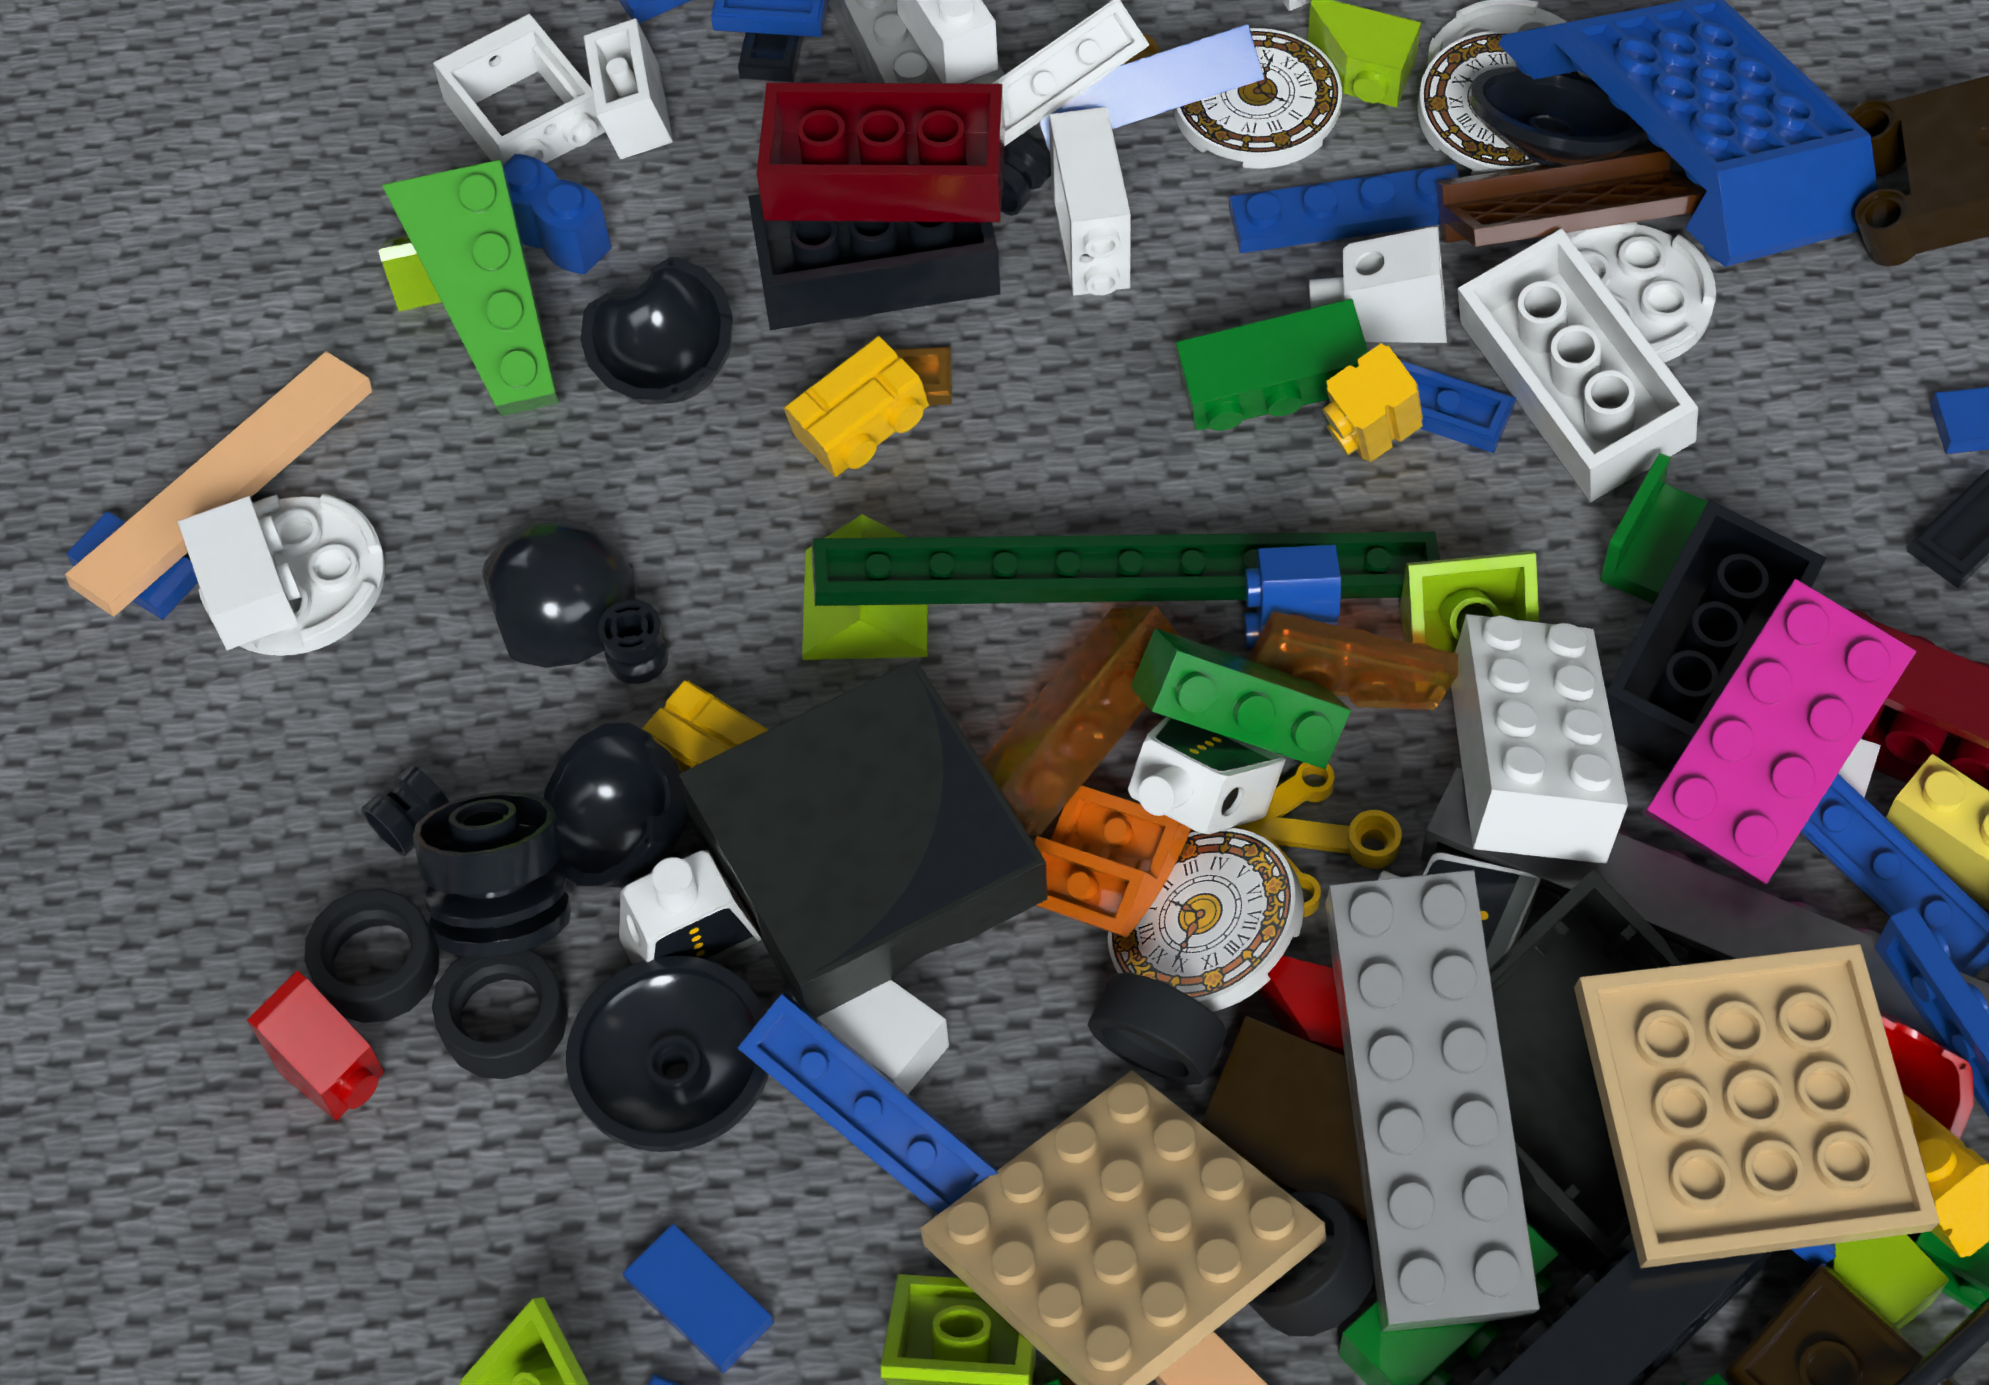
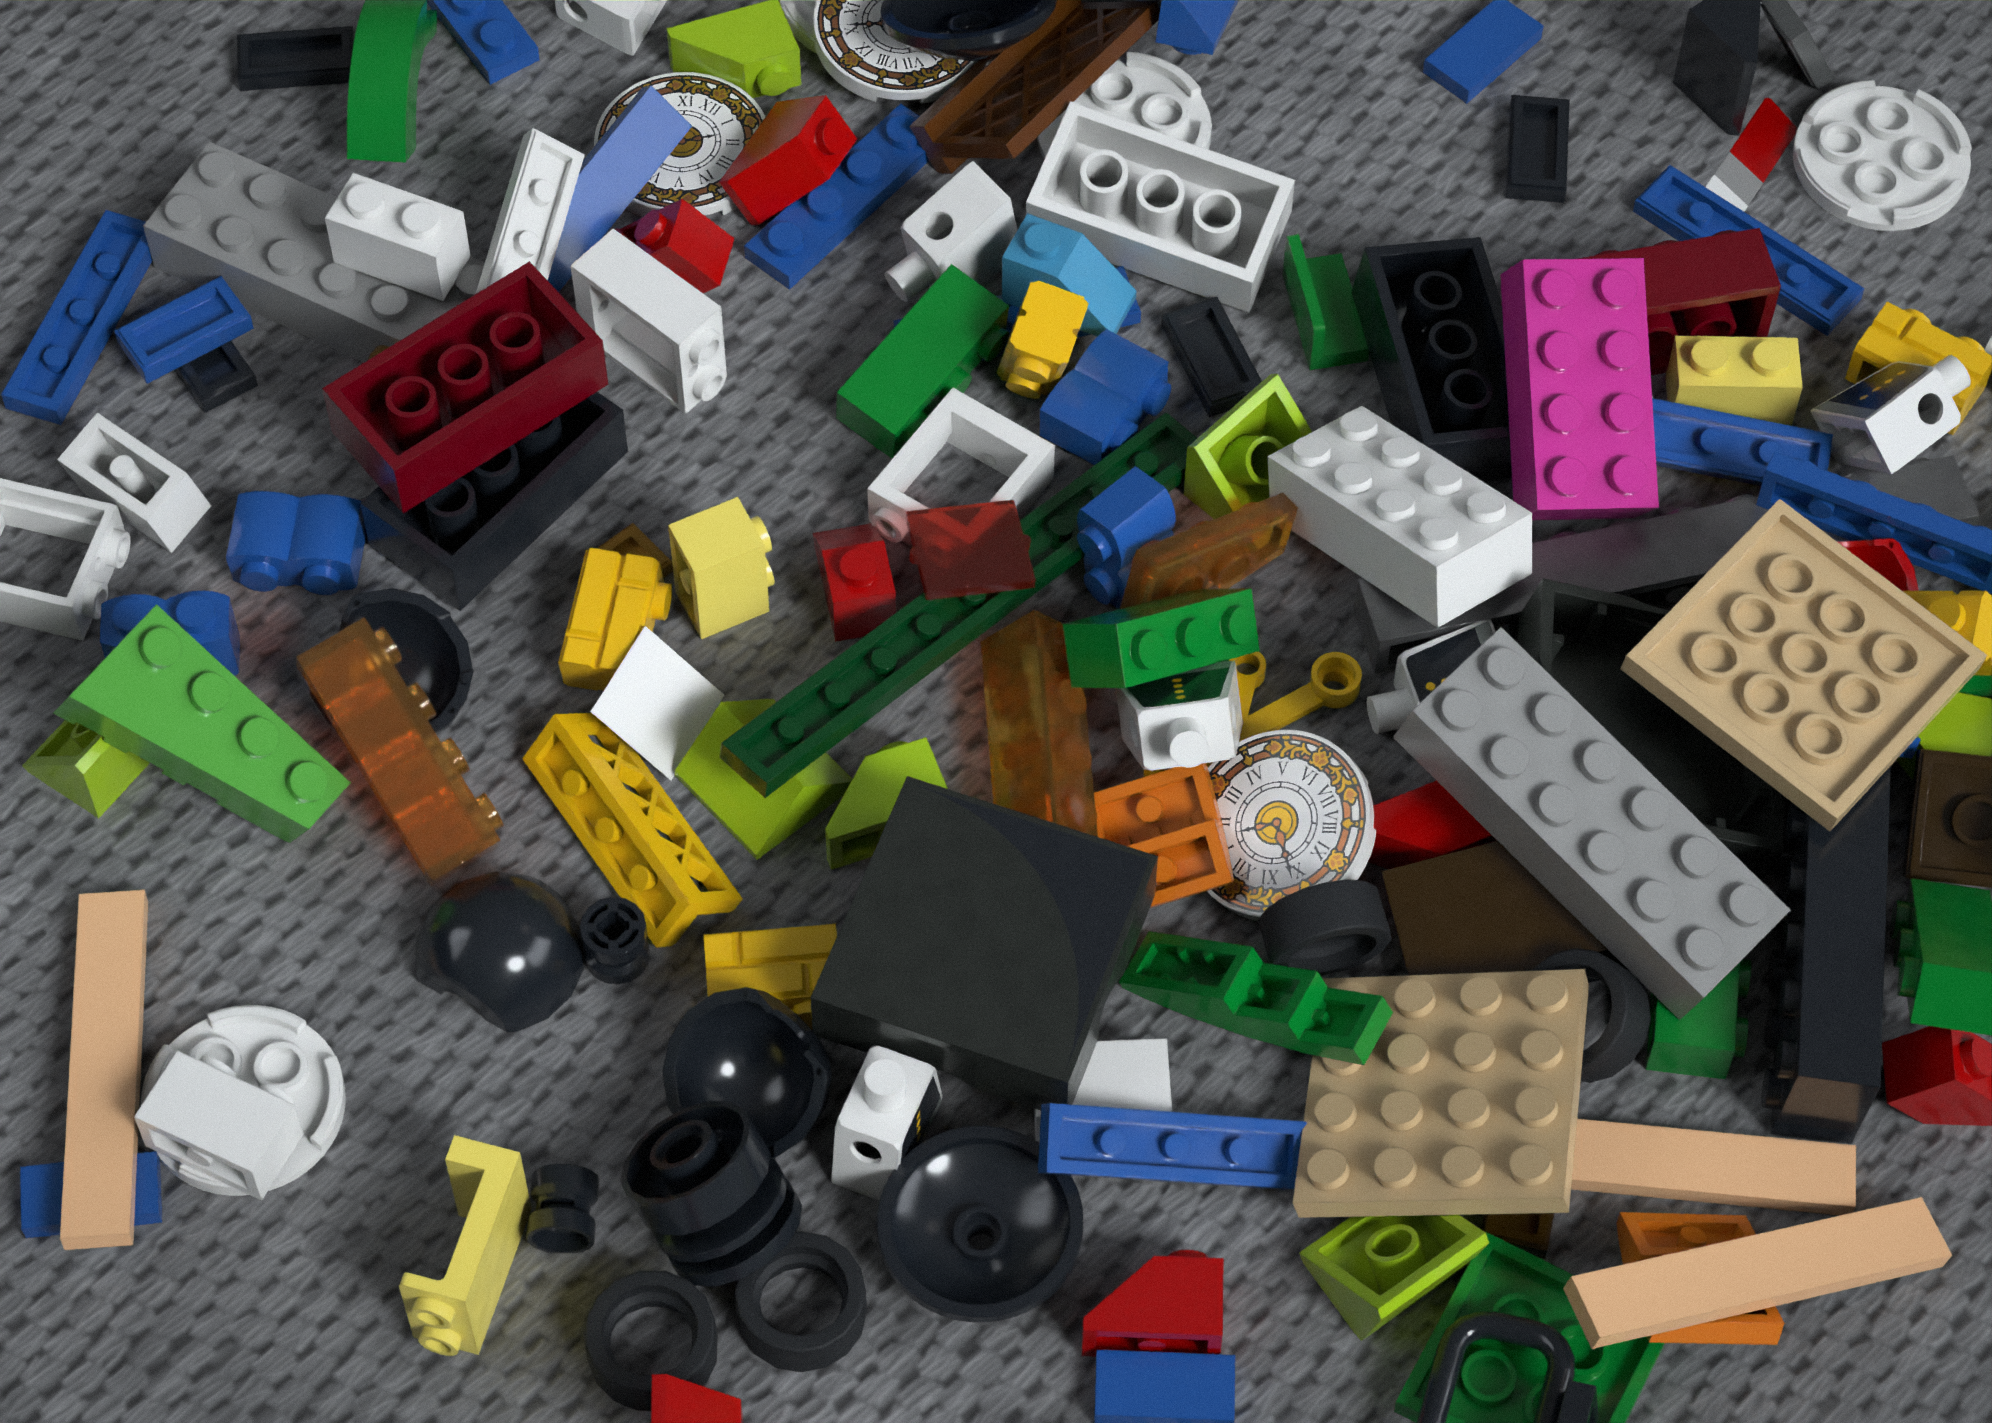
camera: 45 degrees left, 0 degrees up
(304, 794) = (496, 1203): none -> light yellow panel
(601, 391) = (399, 751): none -> clear orange brick
(698, 203) = (296, 542): none -> blue brick
(713, 563) = (621, 825): none -> yellow fence
(749, 1233) = (1162, 1307): none -> red slope
(830, 484) = (657, 702): none -> white sticker
(954, 665) = (871, 797): none -> lime slope
(964, 416) = (721, 566): none -> light yellow brick
(1057, 1045) = (1256, 999): none -> green slope
(1068, 492) = (855, 579): none -> red slope
(1158, 527) = (970, 549): none -> clear red piece
(1163, 164) = (683, 243): none -> red slope
(1255, 424) = (976, 431): none -> white window
(1318, 148) = (787, 157): none -> red slope
(1398, 486) = (1105, 397): none -> blue brick
(1449, 372) = (1069, 262): none -> dark azure slope
(1526, 509) = (1211, 354): none -> black tile

